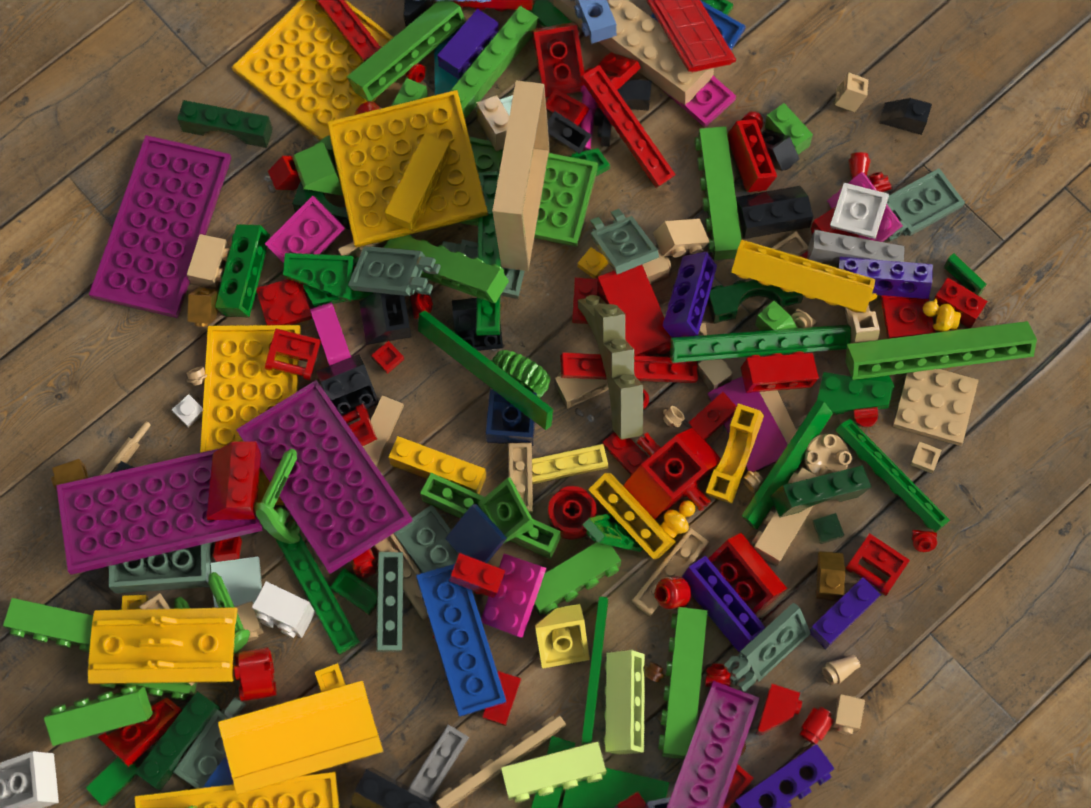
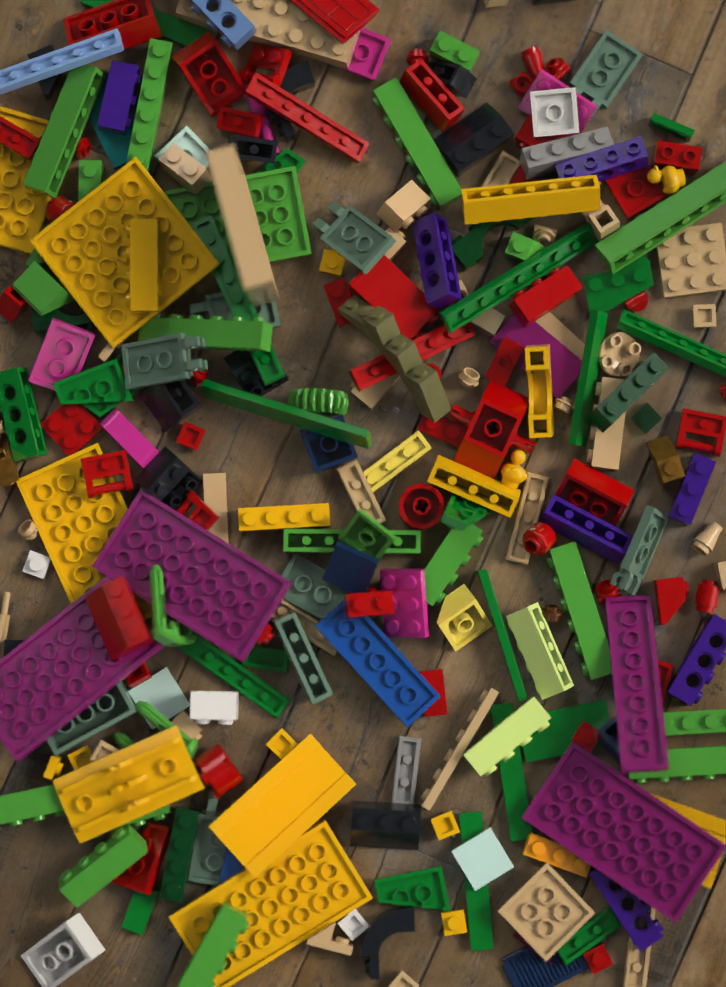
camera: 30 degrees left, 15 degrees up
(104, 600) = (54, 767): none -> yellow plate
(835, 179) = (522, 78): none -> red plate

